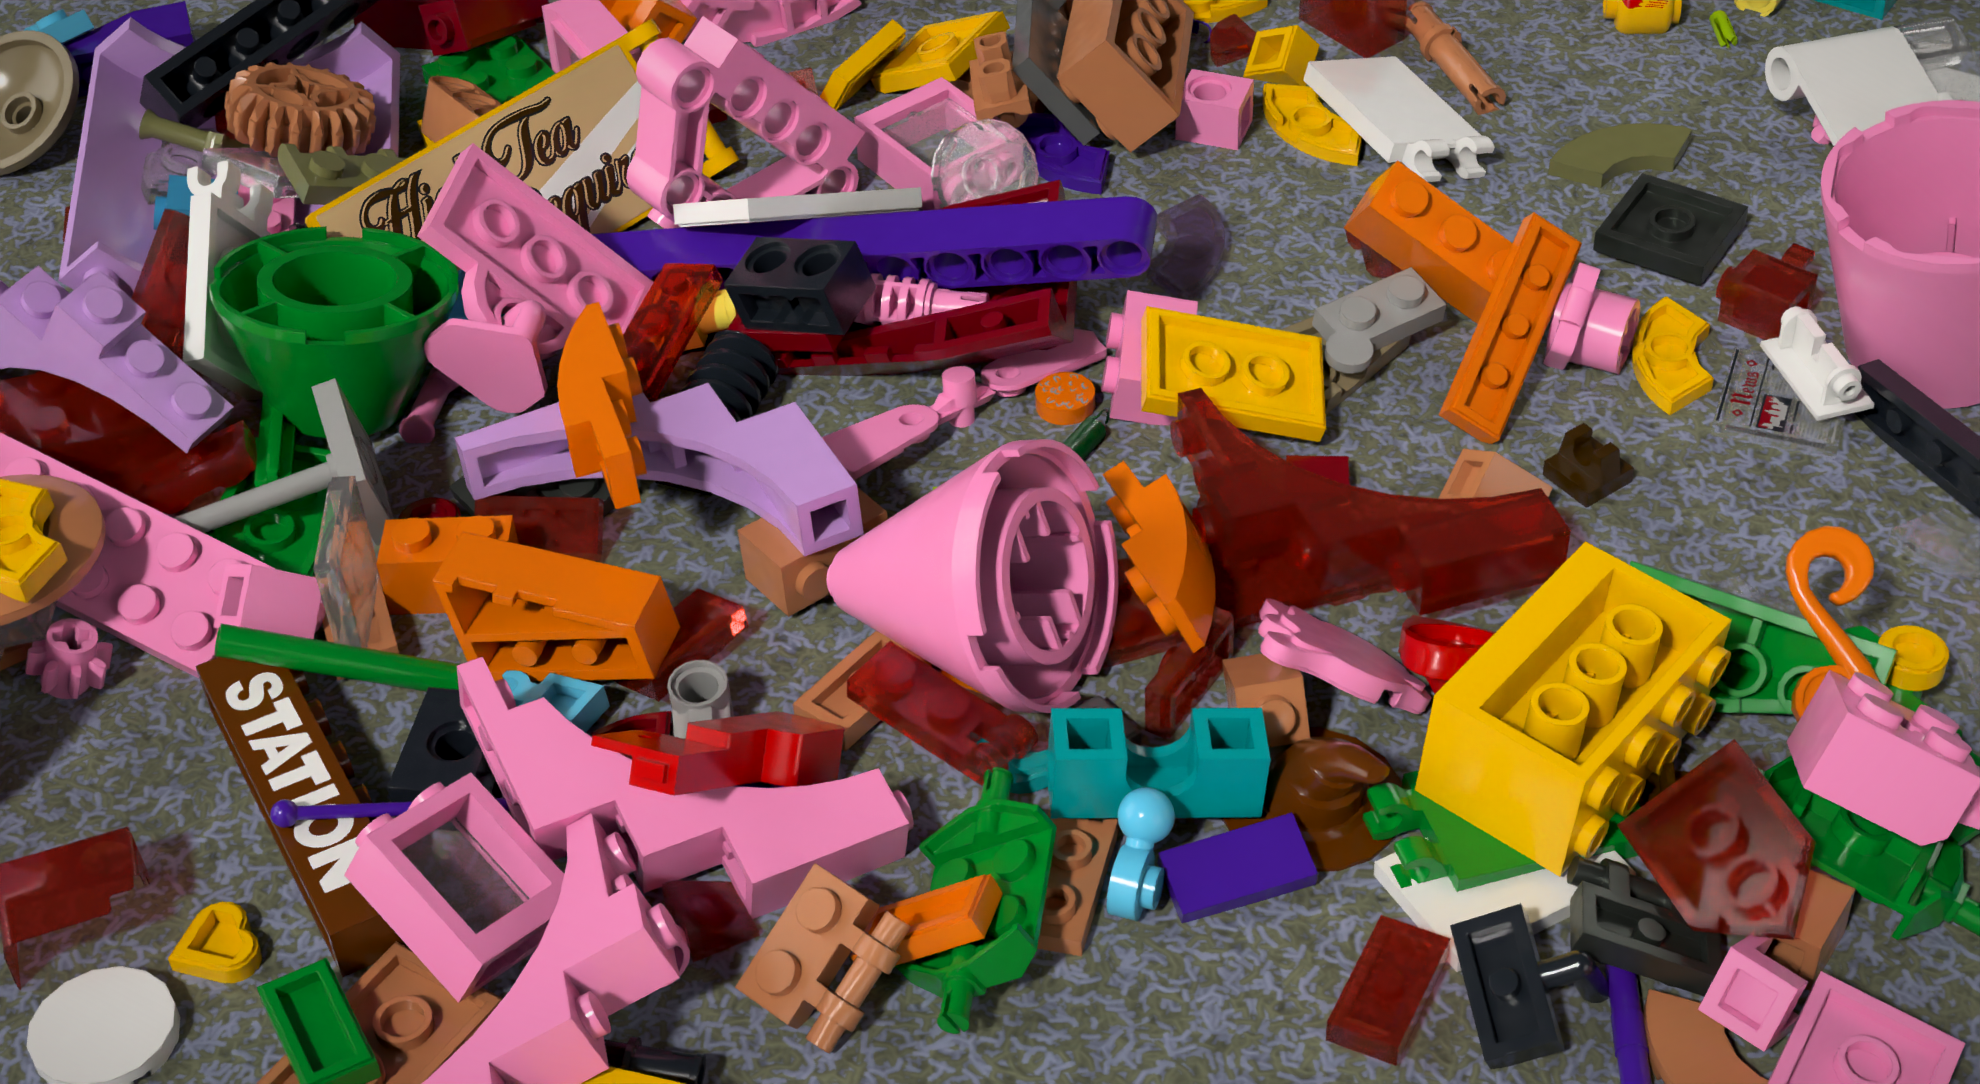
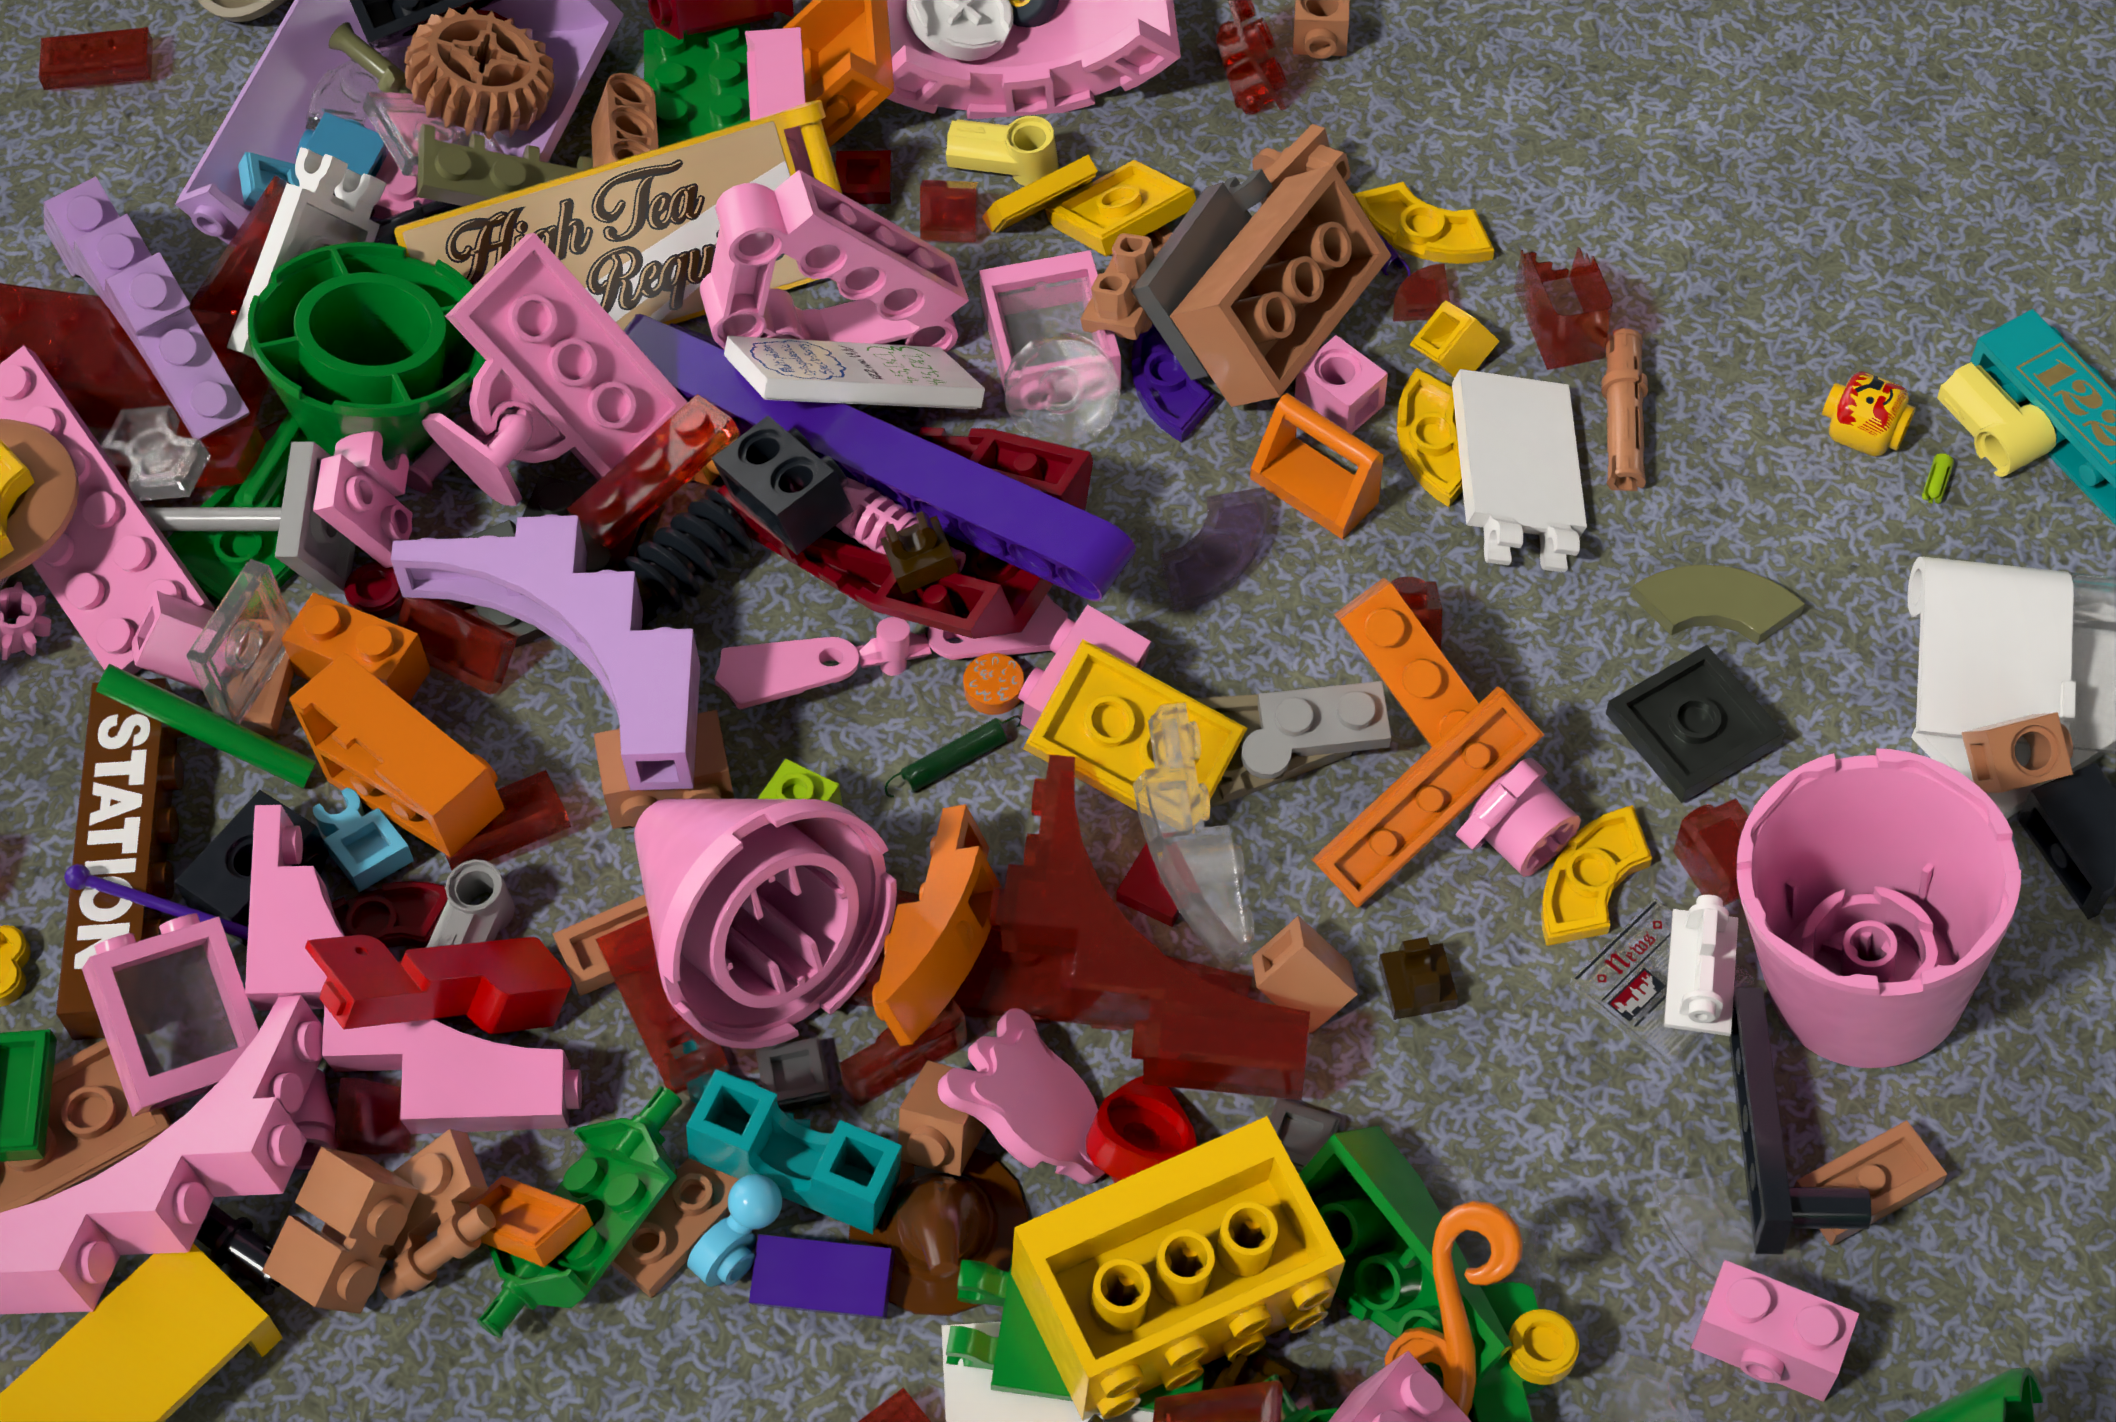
camera: 25 degrees right, 15 degrees up
(129, 240) = (258, 171): none -> medium azure tile
(154, 473) = (159, 459): none -> clear tile
(392, 423) = (359, 495): none -> bright pink plate
(598, 405) = (509, 560): orange slope -> none
(761, 1018) = (361, 1213): none -> nougat piece
(820, 45) = (1018, 149): none -> light yellow piece
(957, 294) = (919, 553): none -> dark brown tile
(1235, 180) = (1311, 479): none -> orange tile
(1338, 432) = (1193, 860): none -> clear slope

